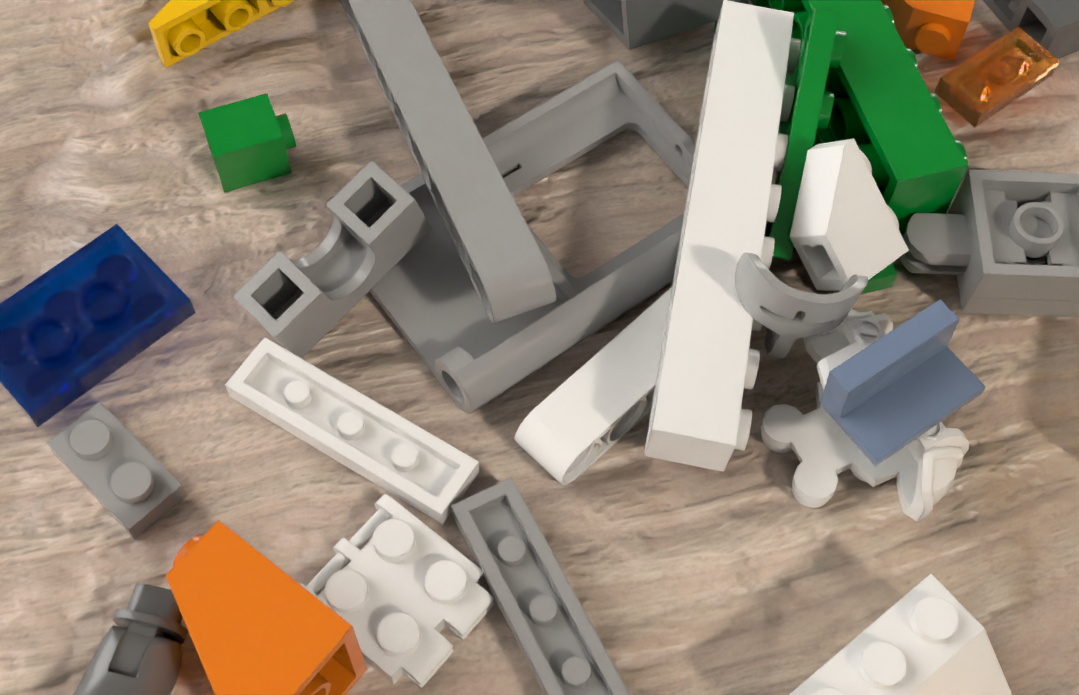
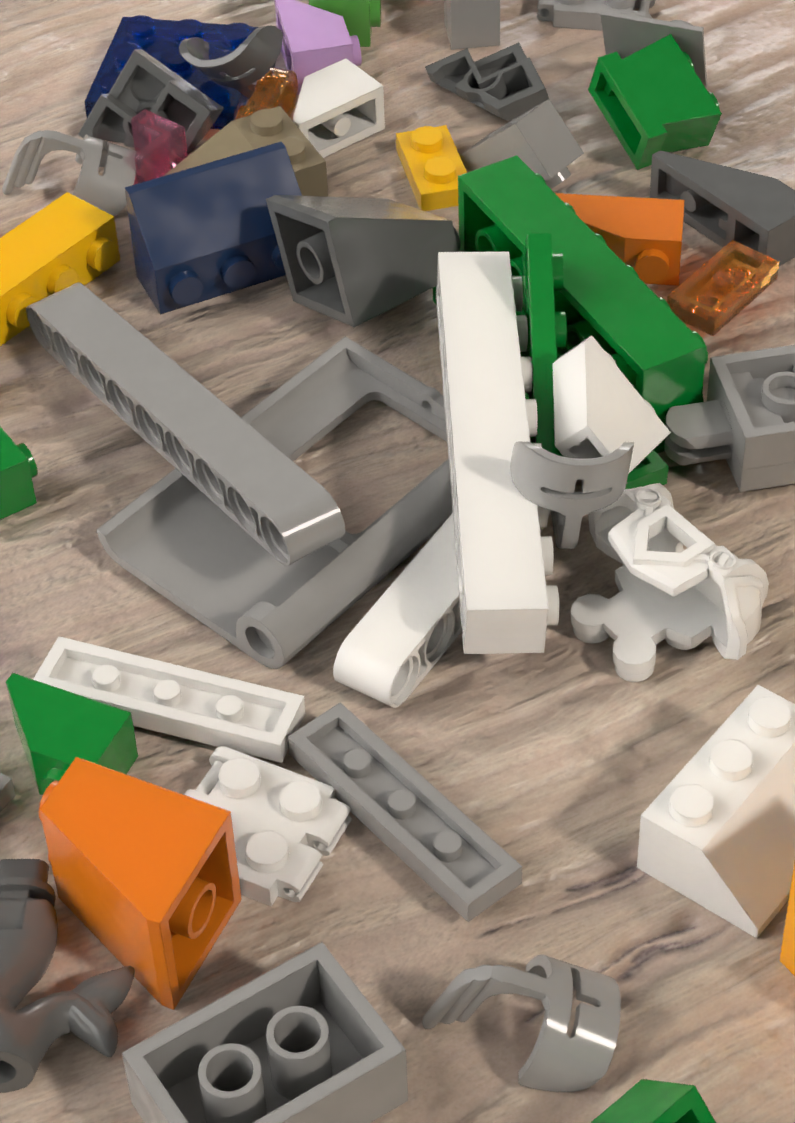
camera: 10 degrees left, 15 degrees down
(243, 462) = (64, 725): none -> green slope
(369, 235) = (145, 516): light grey arch -> none
(900, 385) = (685, 524): sand blue panel -> none

